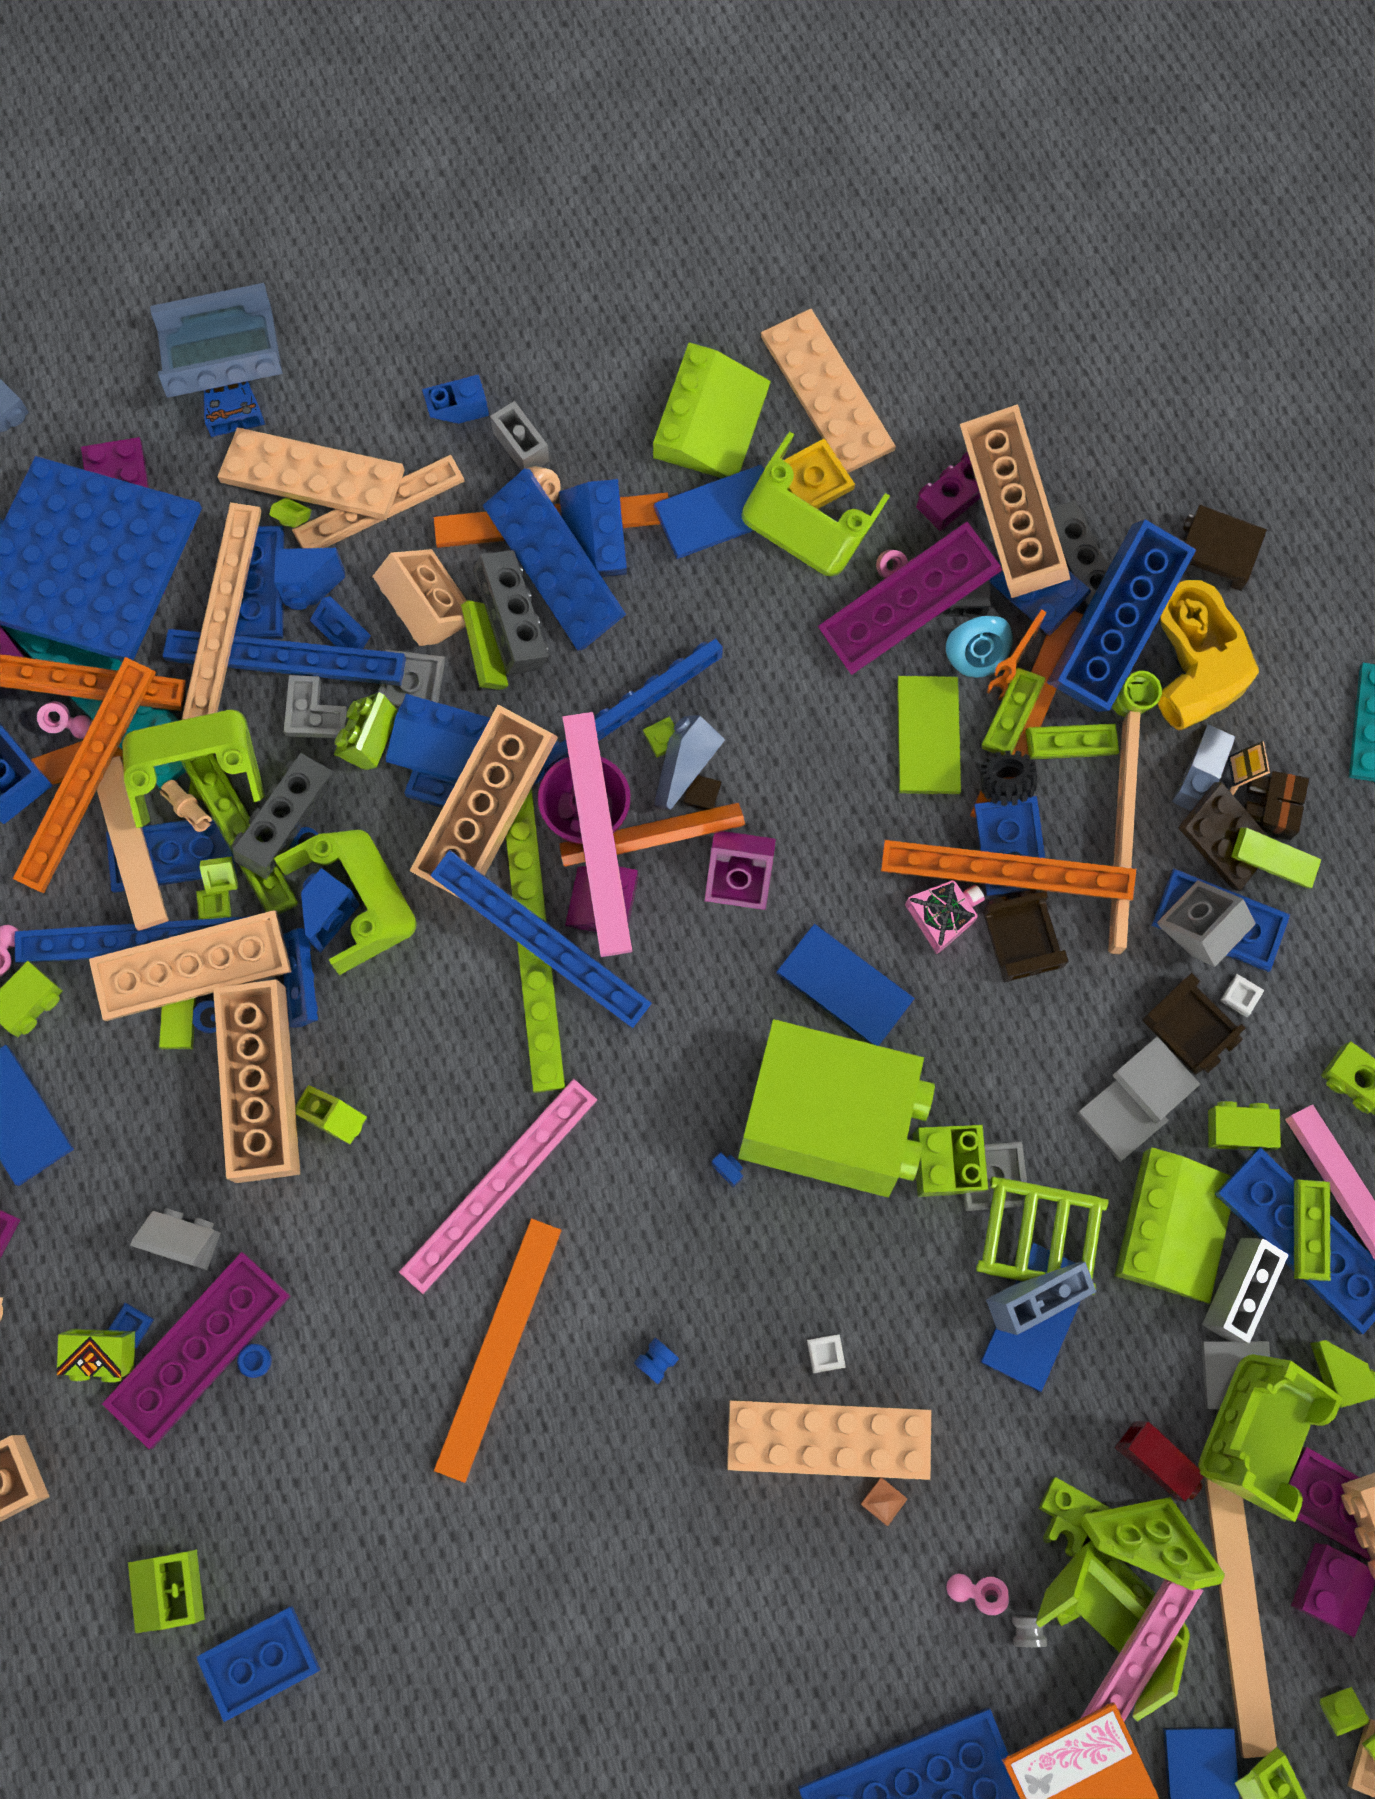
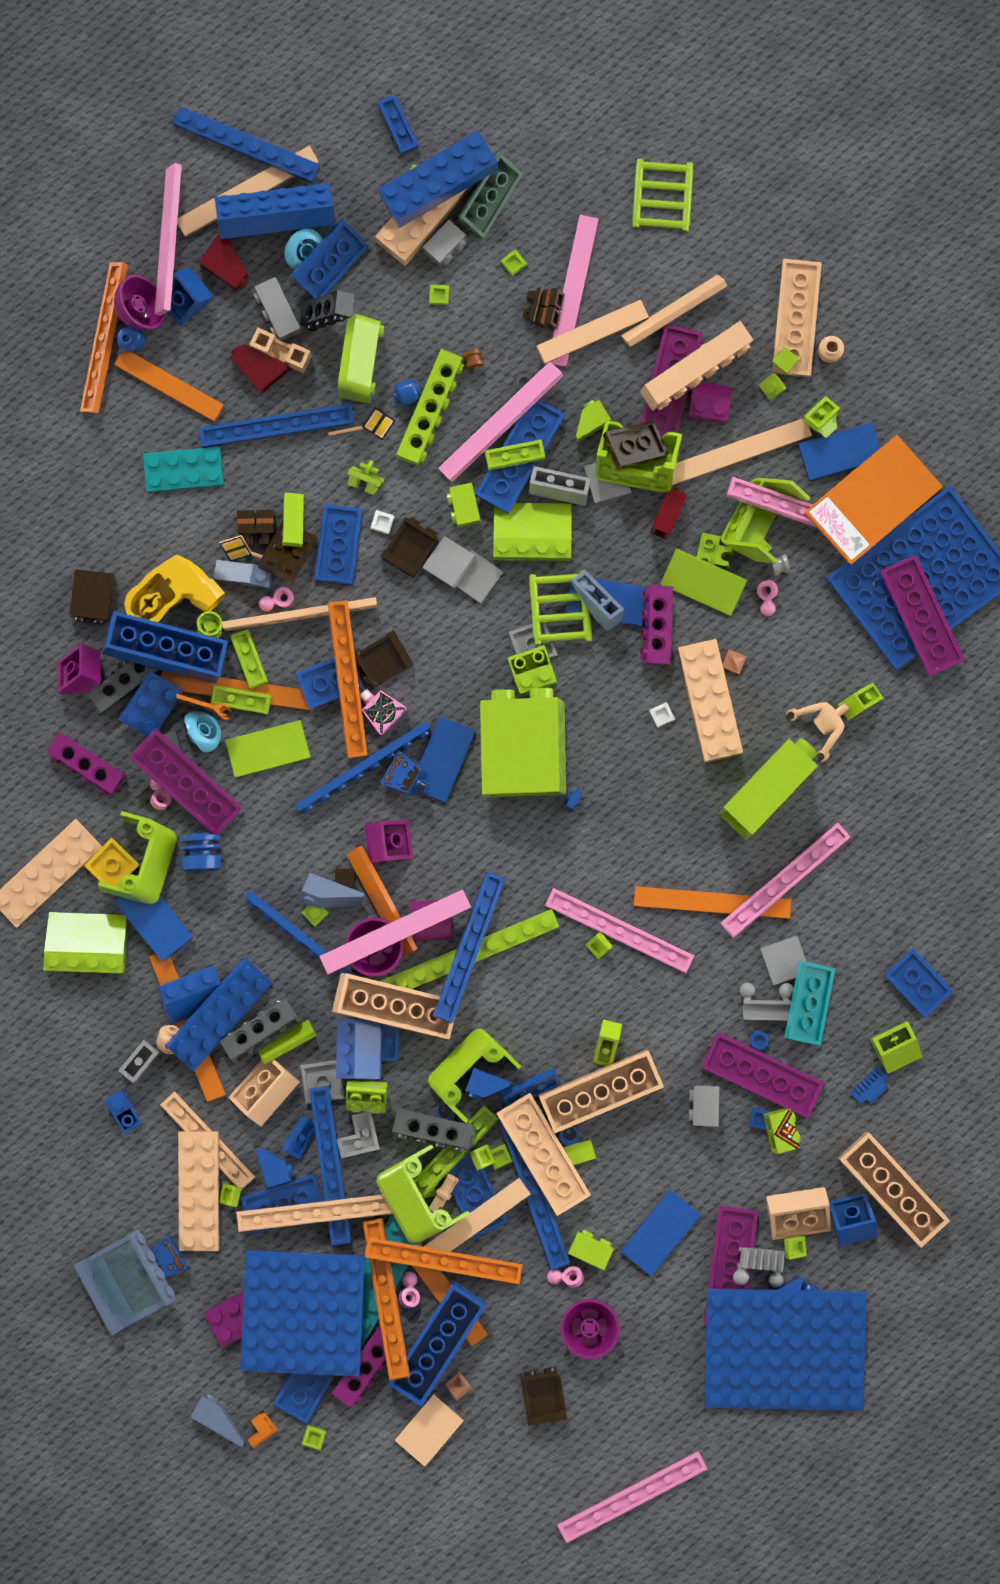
camera: 105 degrees left, 10 degrees up
(110, 1531) = (874, 1090): none -> blue piece
(284, 1462) = (809, 1003): none -> teal plate
(298, 1389) = (765, 1008): none -> light grey gear
(368, 1442) = (783, 959): none -> light grey tile
(484, 1144) = (599, 945): none -> lime plate
(498, 1484) = (785, 880): none -> bright pink tile
(655, 1498) = (769, 787): none -> lime brick
(656, 1360) = (694, 810): blue wheel -> none
(742, 1634) = (826, 720): none -> light nougat piece
(761, 1706) = (861, 700): none -> lime slope
(798, 593) = (200, 852): none -> blue wheel
(834, 919) = (405, 776): none -> blue torso
(867, 875) = (357, 772): none -> blue plate
(1013, 789) = (297, 689): black tyre -> none
(1015, 501) = (106, 731): light nougat brick -> none
(1023, 1411) = (663, 616): none -> magenta brick
(1030, 1488) = (703, 582): none -> lime tile
(1111, 499) = (79, 670): none -> magenta slope
(1152, 790) = (267, 603): none -> bright pink plate
(1156, 1540) = (713, 508): lime plate -> none
(1207, 922) = (345, 553): light grey slope -> none
(1292, 1435) = (635, 444): none -> dark brown plate
(1326, 976) = (357, 475): none -> lime hips

